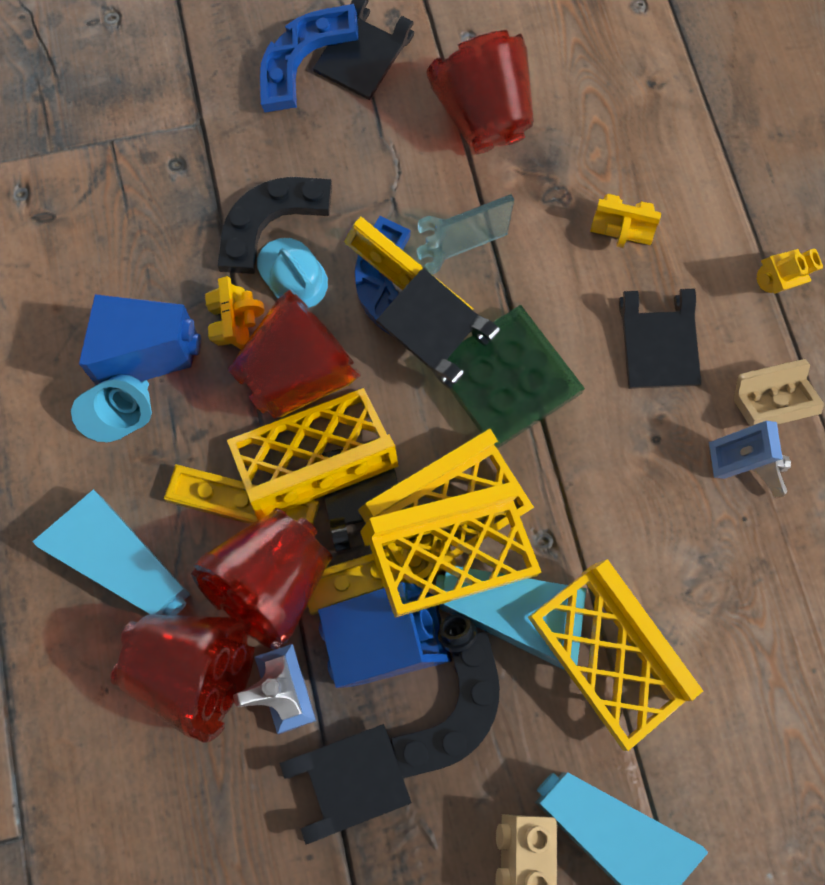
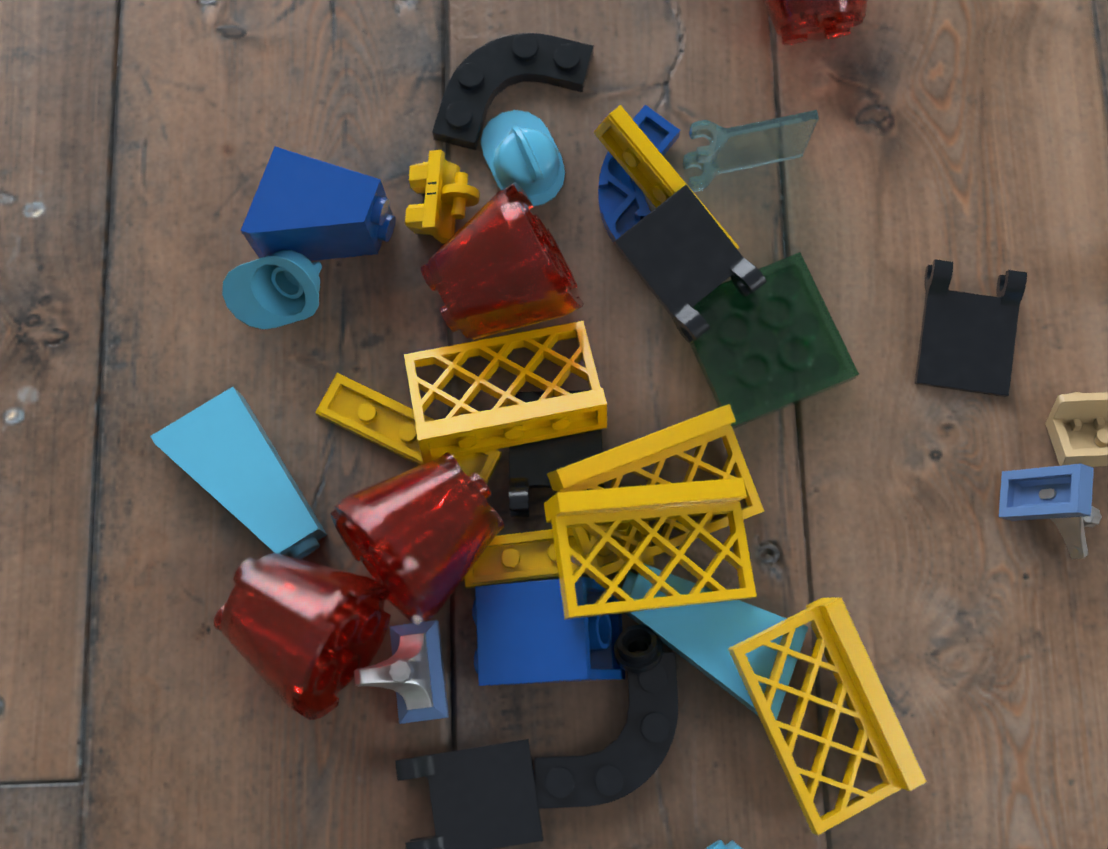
camera: 15 degrees right, 5 degrees up
(625, 221) = (957, 168): yellow hips -> none

